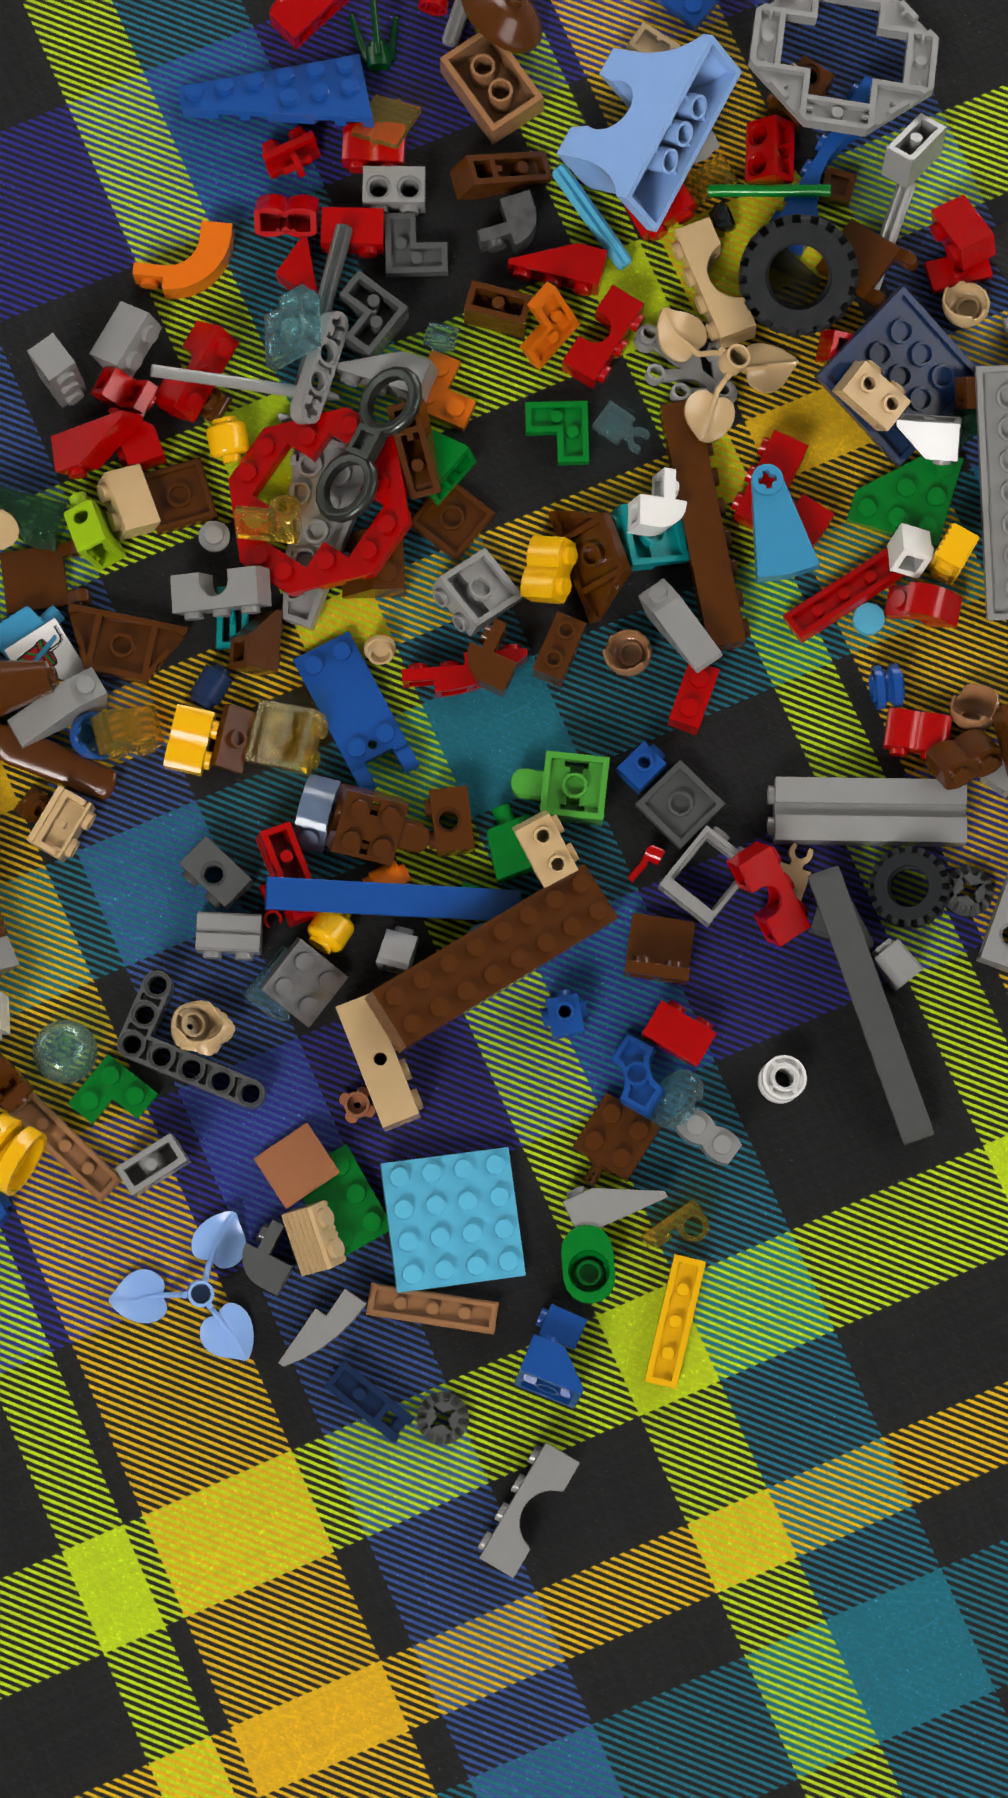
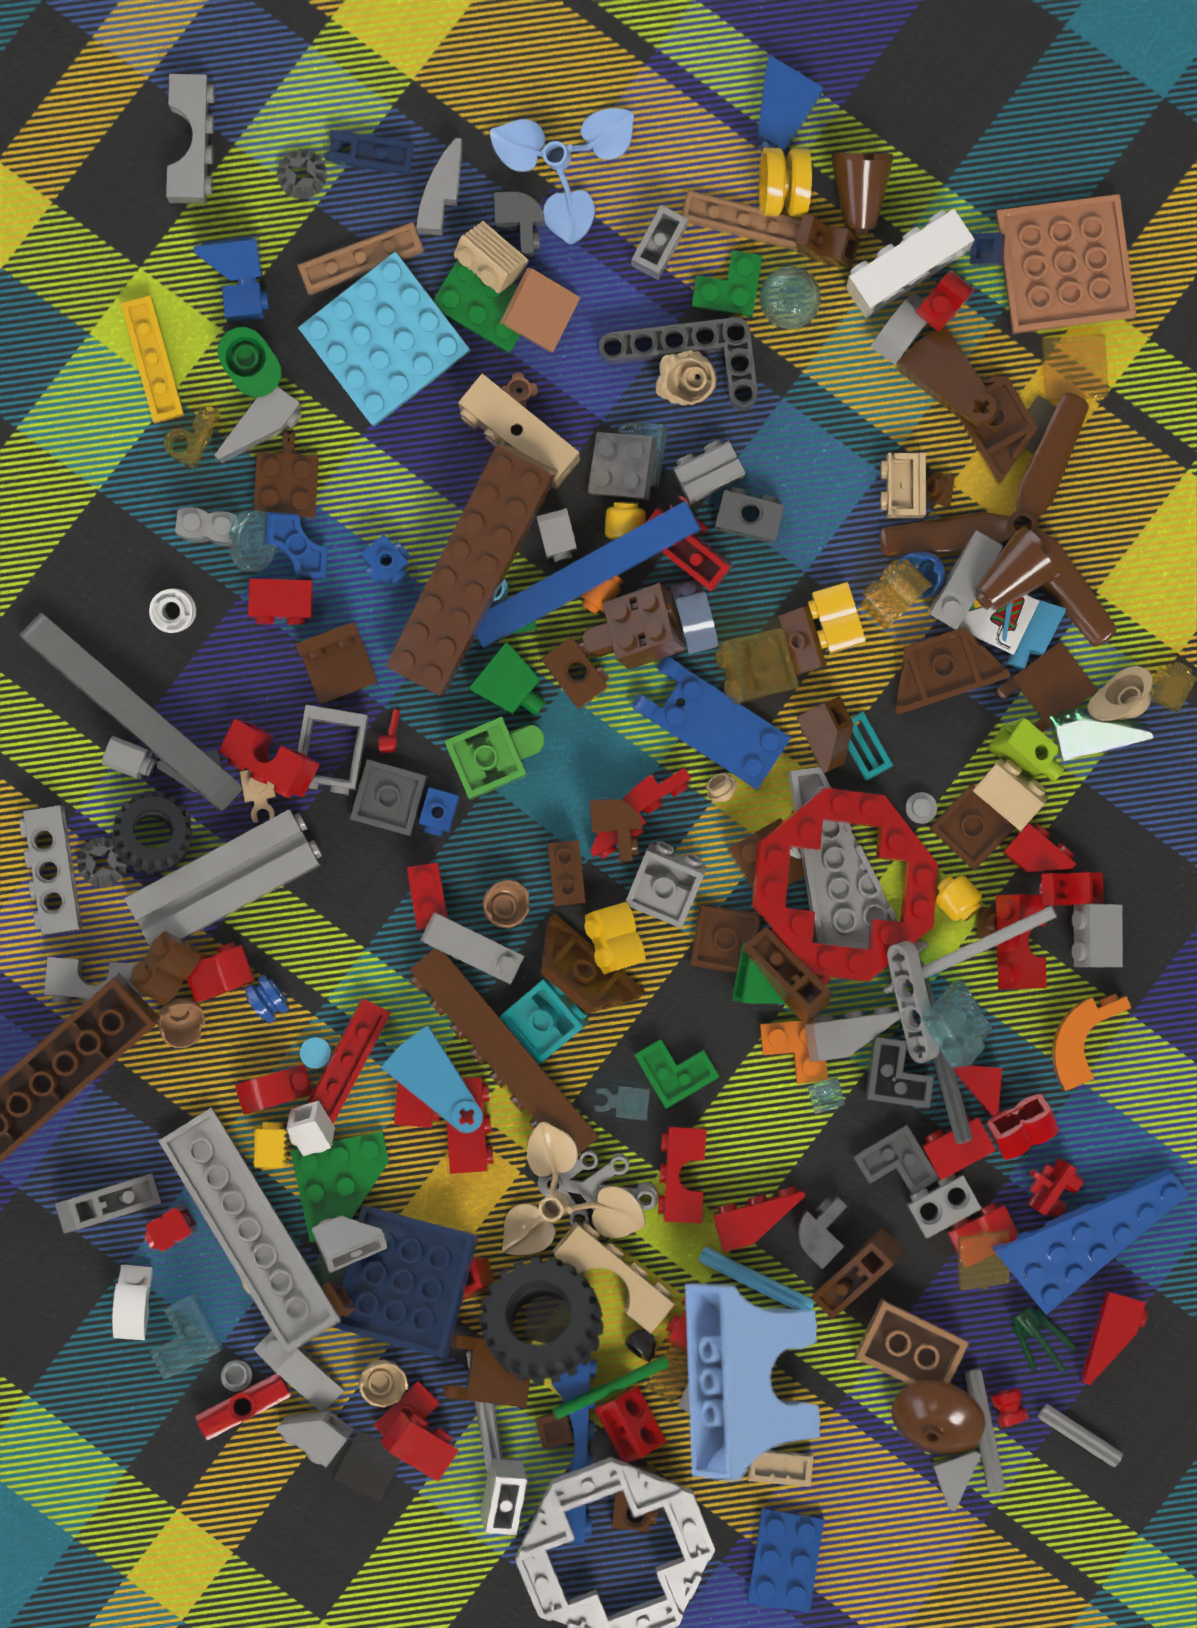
camera: 150 degrees right, 5 degrees up
(58, 371) = (1136, 869): light grey brick -> none
(92, 443) = (1072, 822): red slope -> none
(211, 686) = (847, 674): dark blue brick -> none
(246, 590) = (905, 744): light grey arch -> none
(275, 524) = (867, 843): clear yellow plate -> none
(368, 443) = (829, 952): pearl dark grey bar -> none
(497, 309) = (789, 1146): reddish brown brick -> none
(545, 848) = (478, 687): tan brick -> none
(554, 326) = (732, 1161): orange plate -> none
(656, 512) = (543, 1041): white brick -> none
(872, 395) = (418, 1244): tan brick -> none

